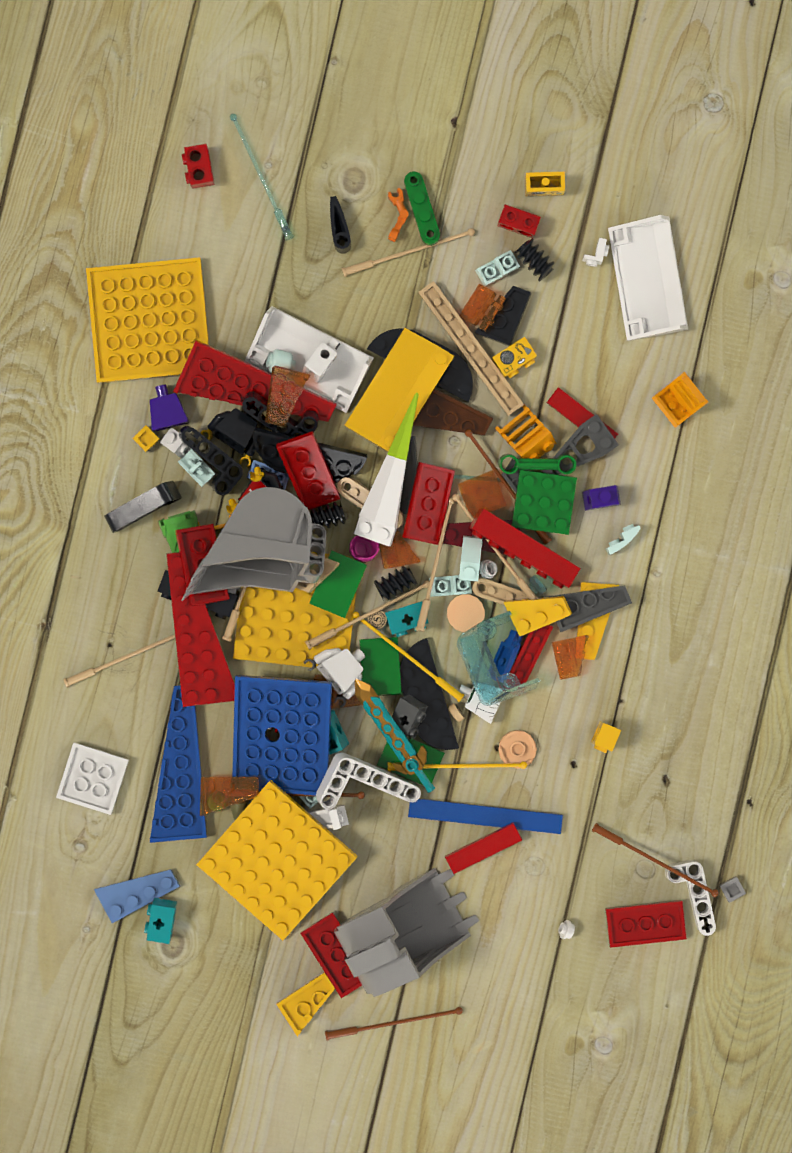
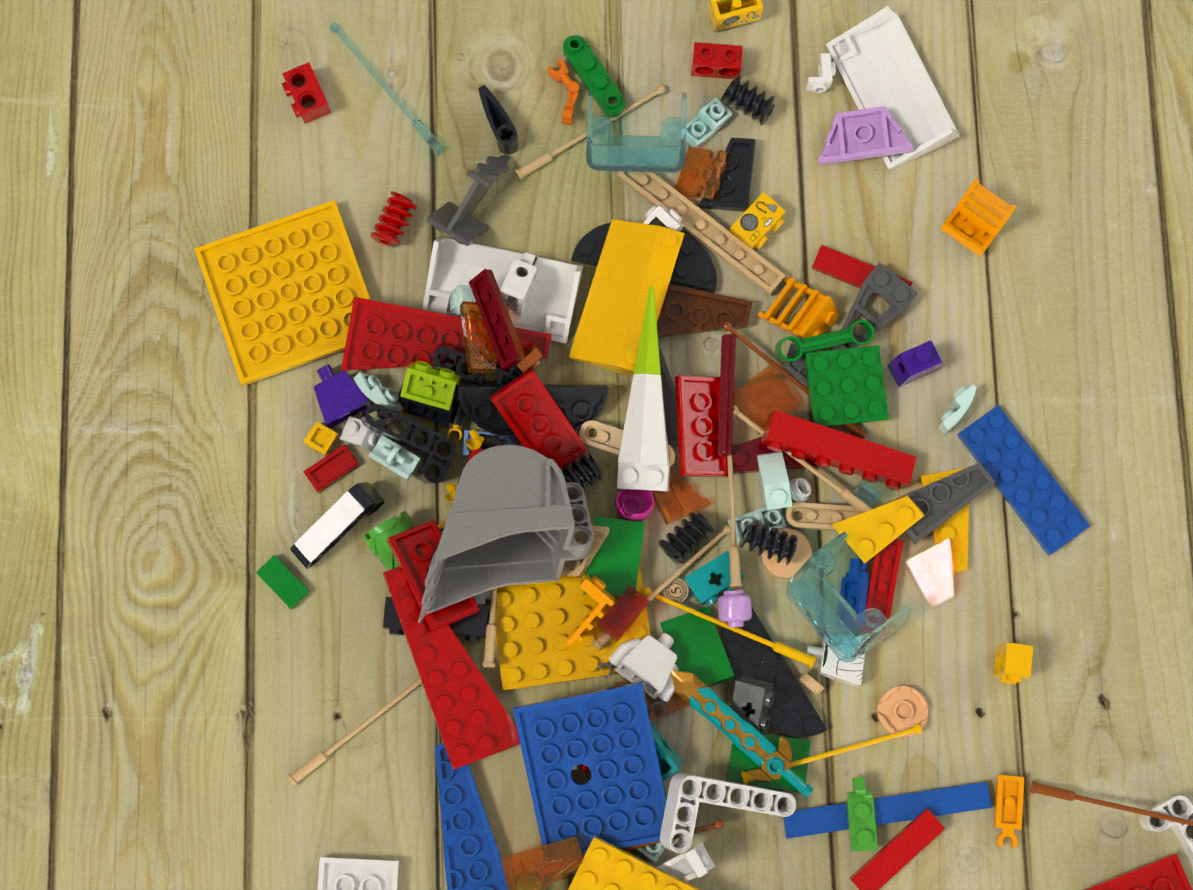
camera: 20 degrees left, 10 degrees down
(93, 537) = (282, 582): none -> green tile
(148, 462) = (331, 468): none -> red tile
(192, 411) = (373, 389): none -> light aqua slope
(235, 423) = (430, 385): none -> lime bracket
(241, 284) = (393, 219): none -> red piece
(288, 299) = (458, 221): none -> dark grey piece
(296, 386) = (497, 319): none -> dark red plate
(313, 423) = (531, 360): none -> dark orange plate
(315, 605) = (596, 589): none -> light orange plate
(333, 627) = (623, 613): none -> clear red plate
(415, 644) = (734, 608): none -> lavender head
(435, 278) = (636, 153): none -> clear light blue windscreen
(446, 337) = (669, 218): none -> white bracket
(453, 485) = (727, 394): none -> dark red axle
(453, 602) = (769, 540): none -> black piece
(464, 816) = (861, 817): none -> bright green hinge
(572, 836) = (1008, 807): none -> light orange plate
(614, 310) = (863, 136): none -> lavender wing
(656, 604) = (1023, 480): none -> blue plate

